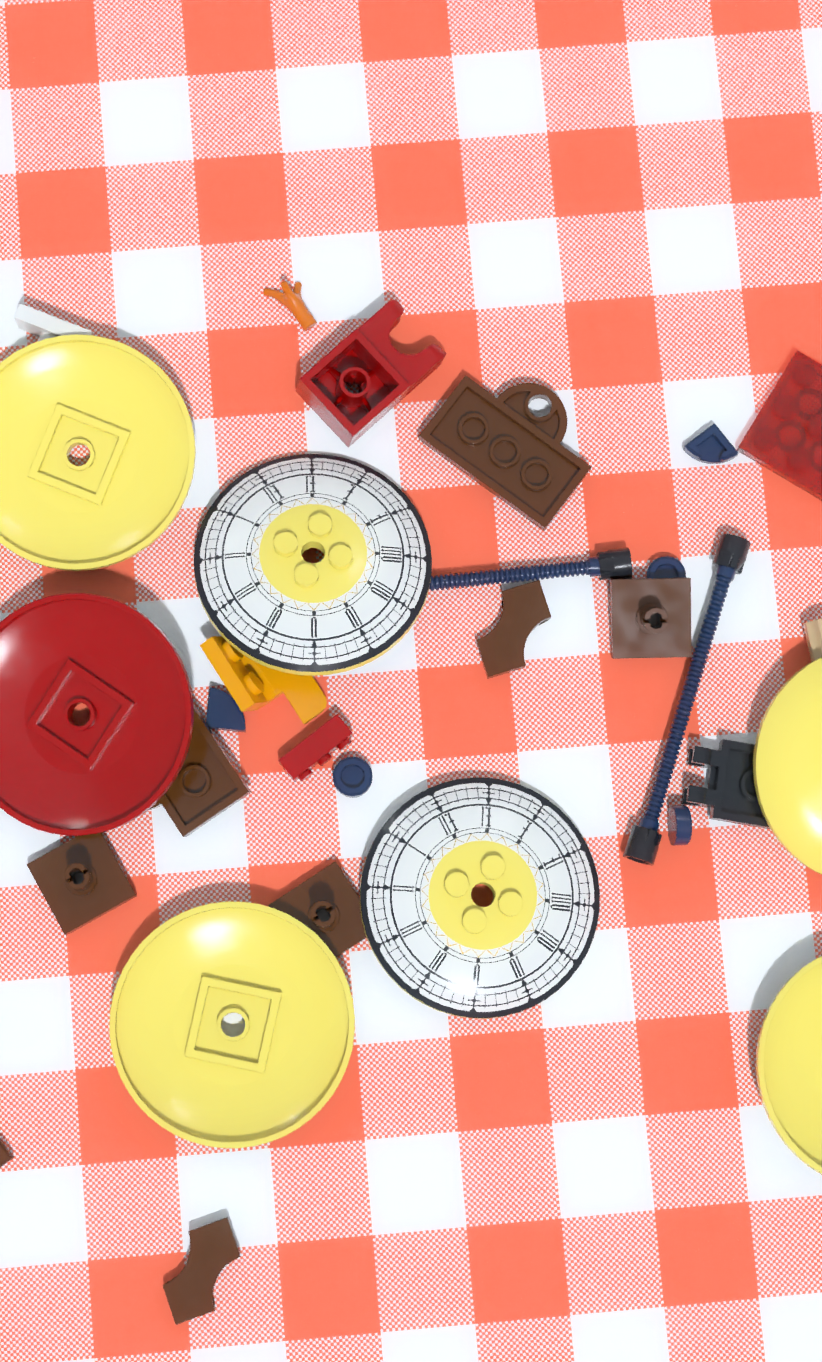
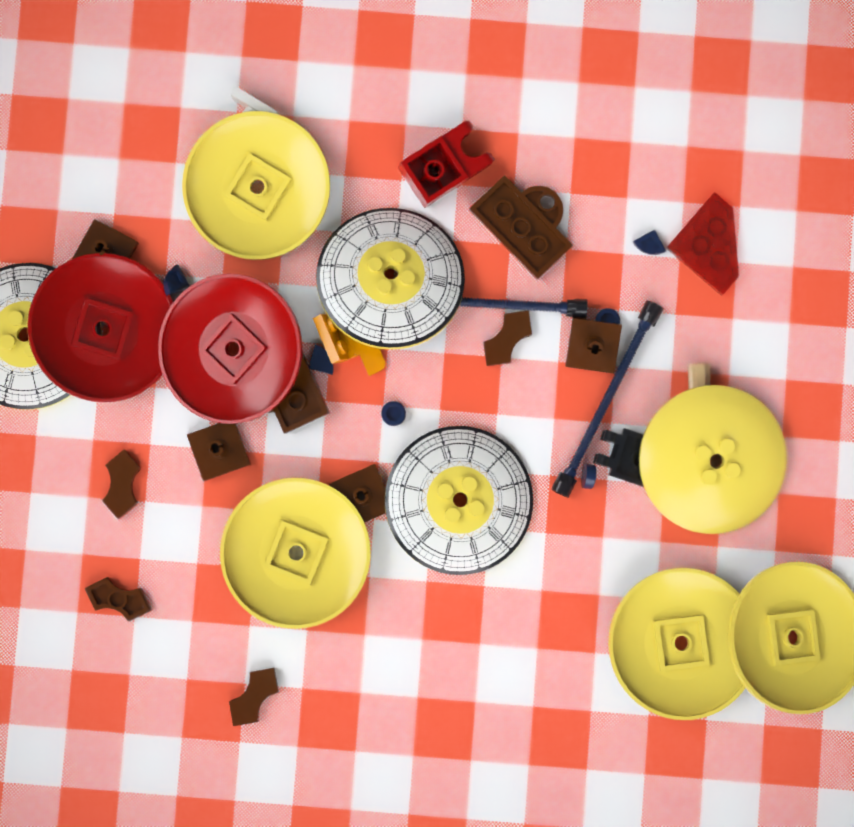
camera: 15 degrees right, 5 degrees up
(293, 301) = (405, 110): orange bar -> none
(316, 749) = (374, 393): red piece -> none

